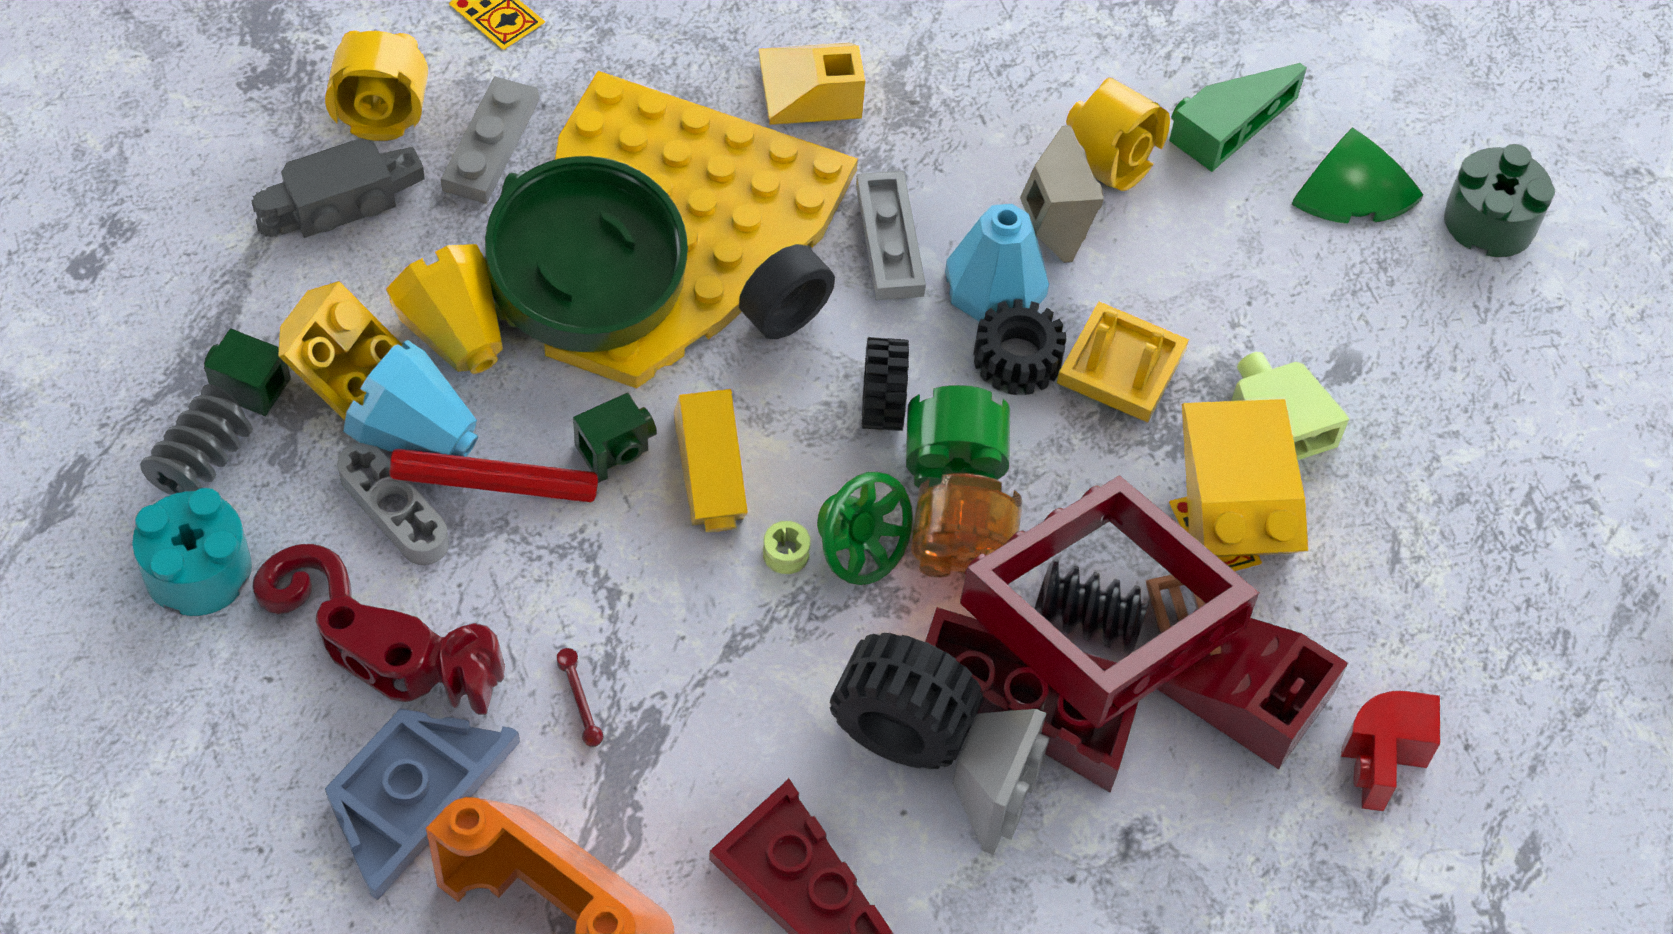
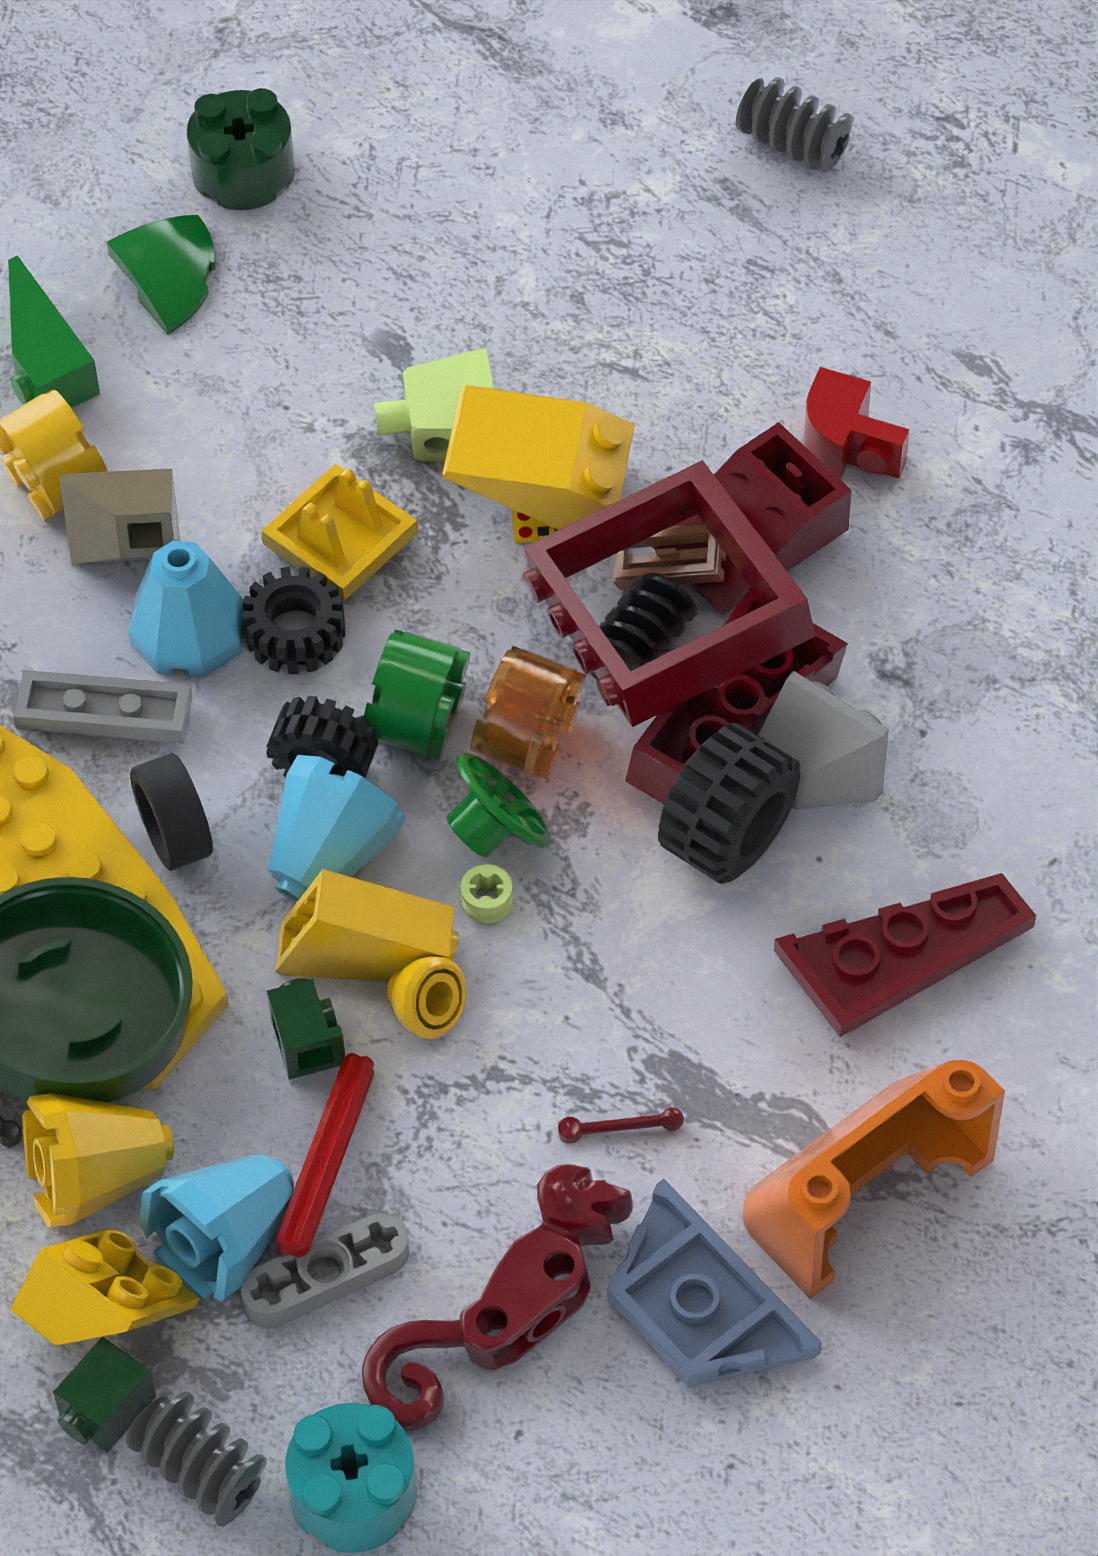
camera: 70 degrees left, 0 degrees up
(659, 518) = (428, 996): none -> yellow brick
(805, 407) = (328, 825): none -> medium azure cone

